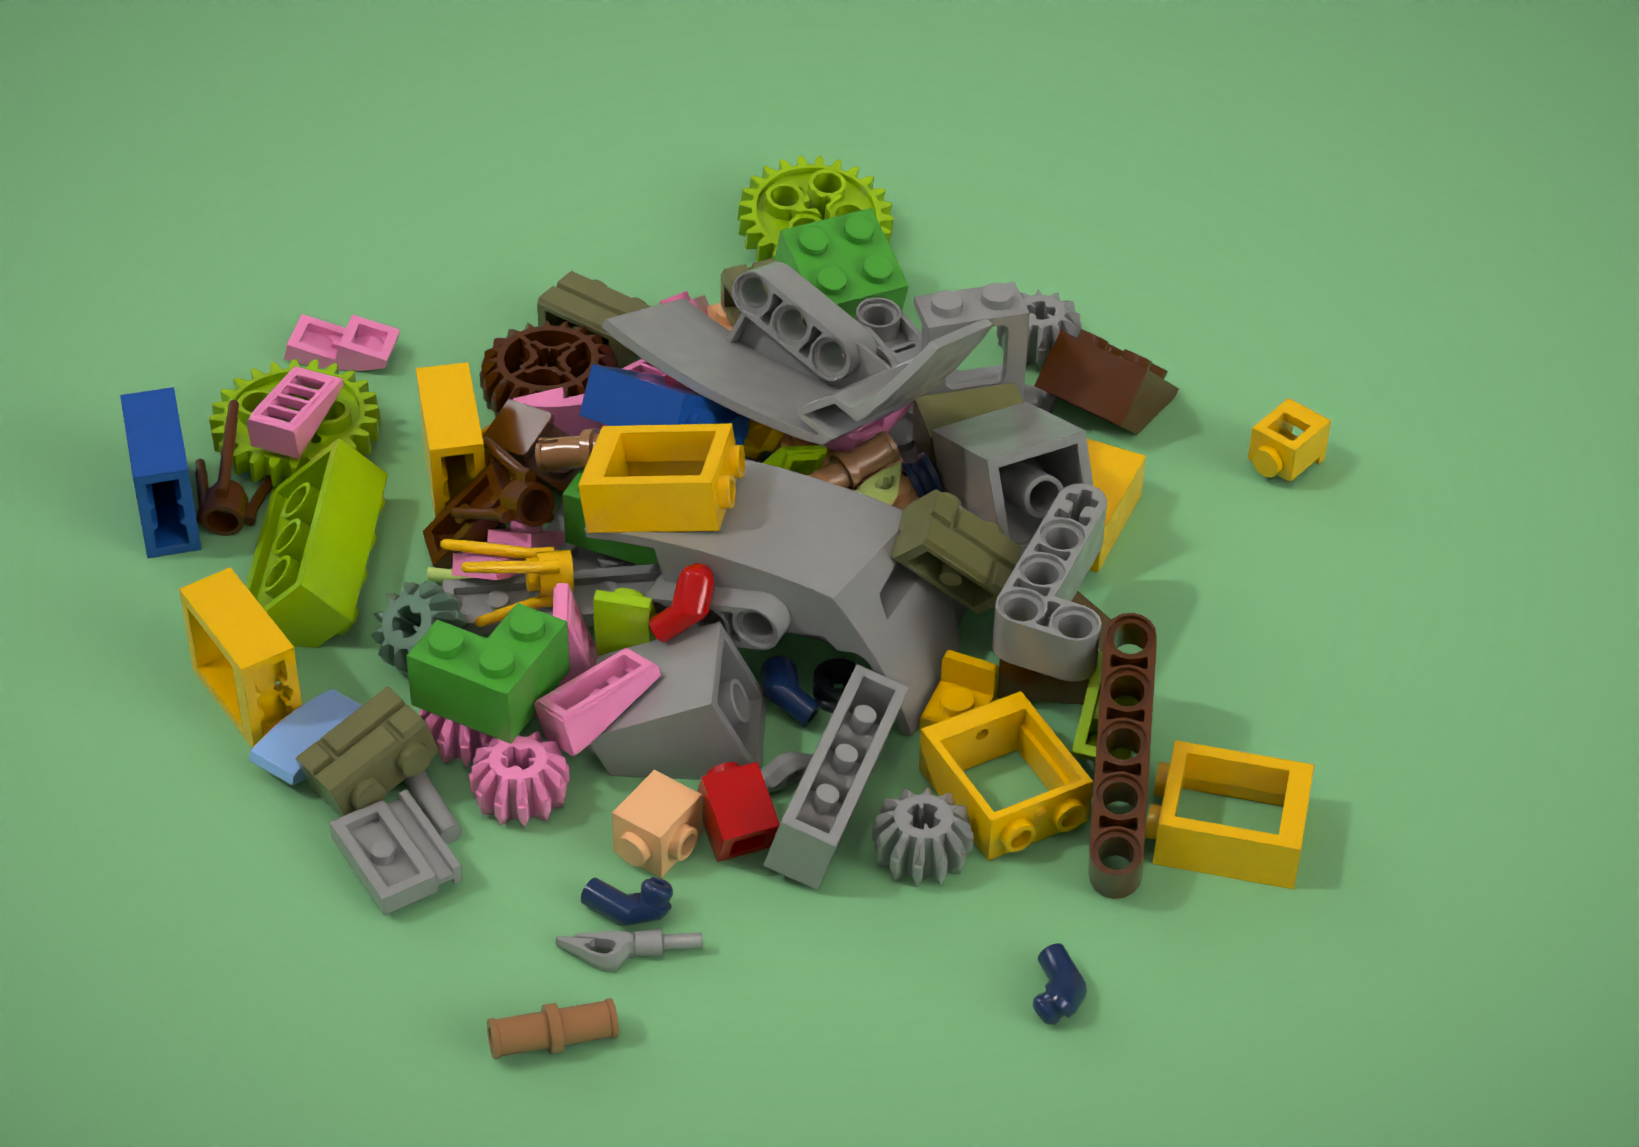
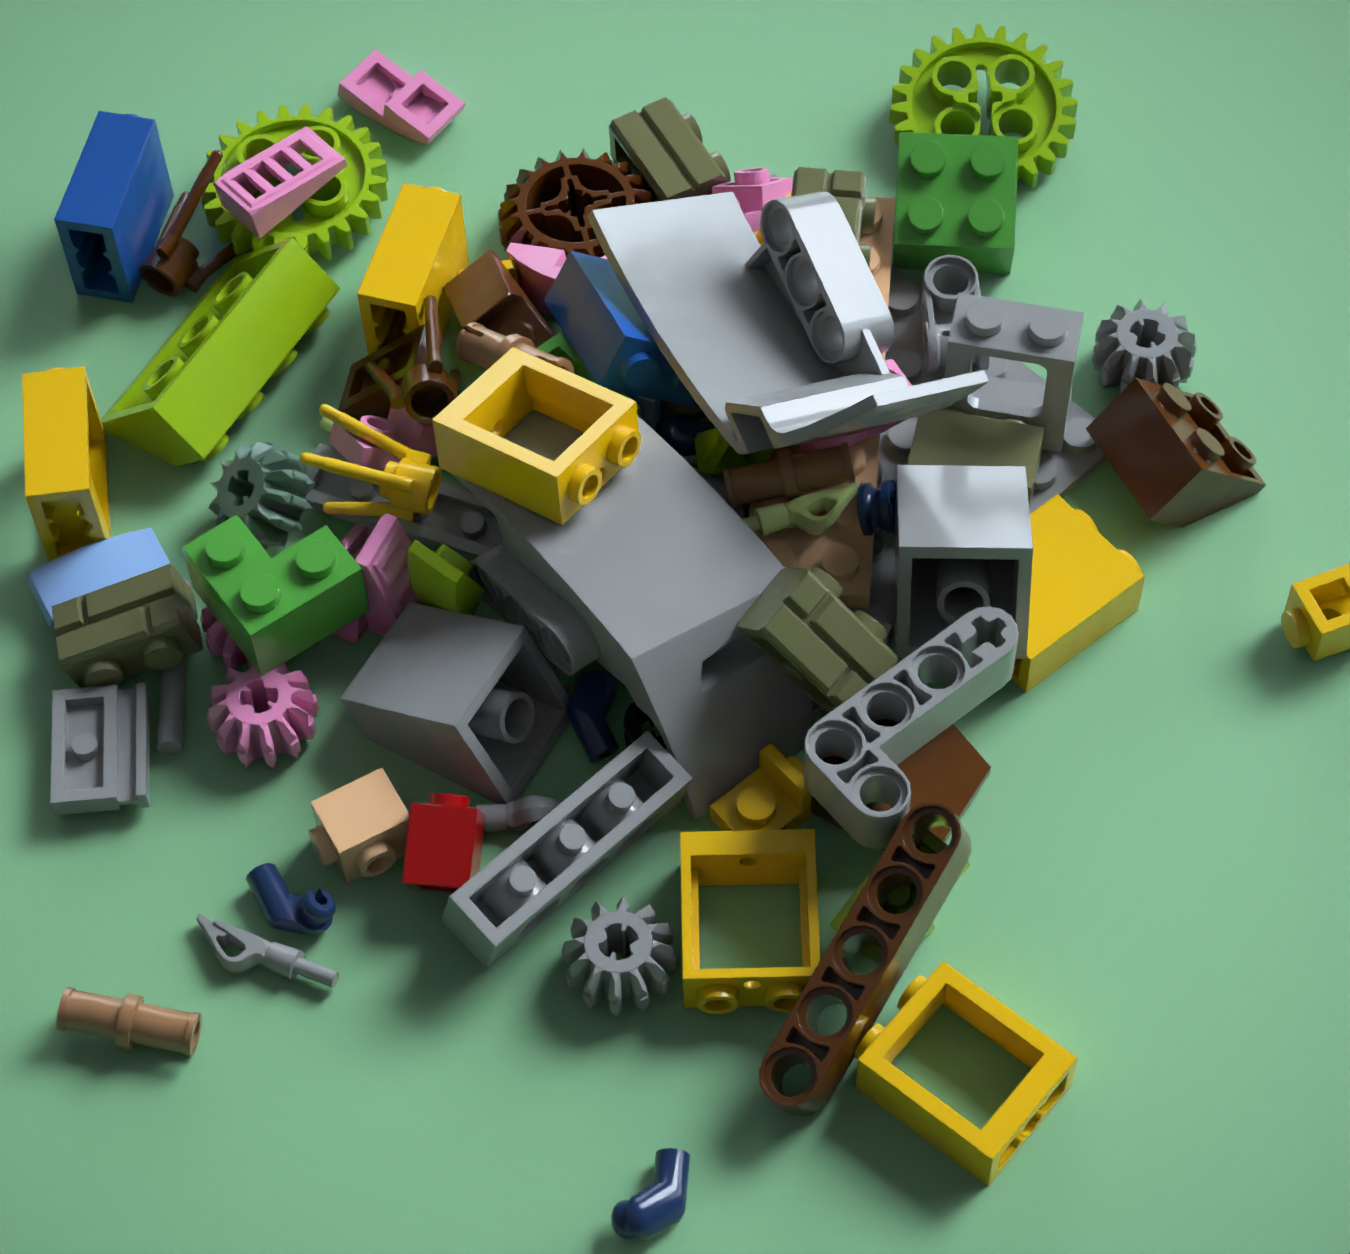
camera: 30 degrees right, 15 degrees up
(594, 699) = (365, 660): bright pink slope -> none
(689, 603) = (500, 592): red arm -> none

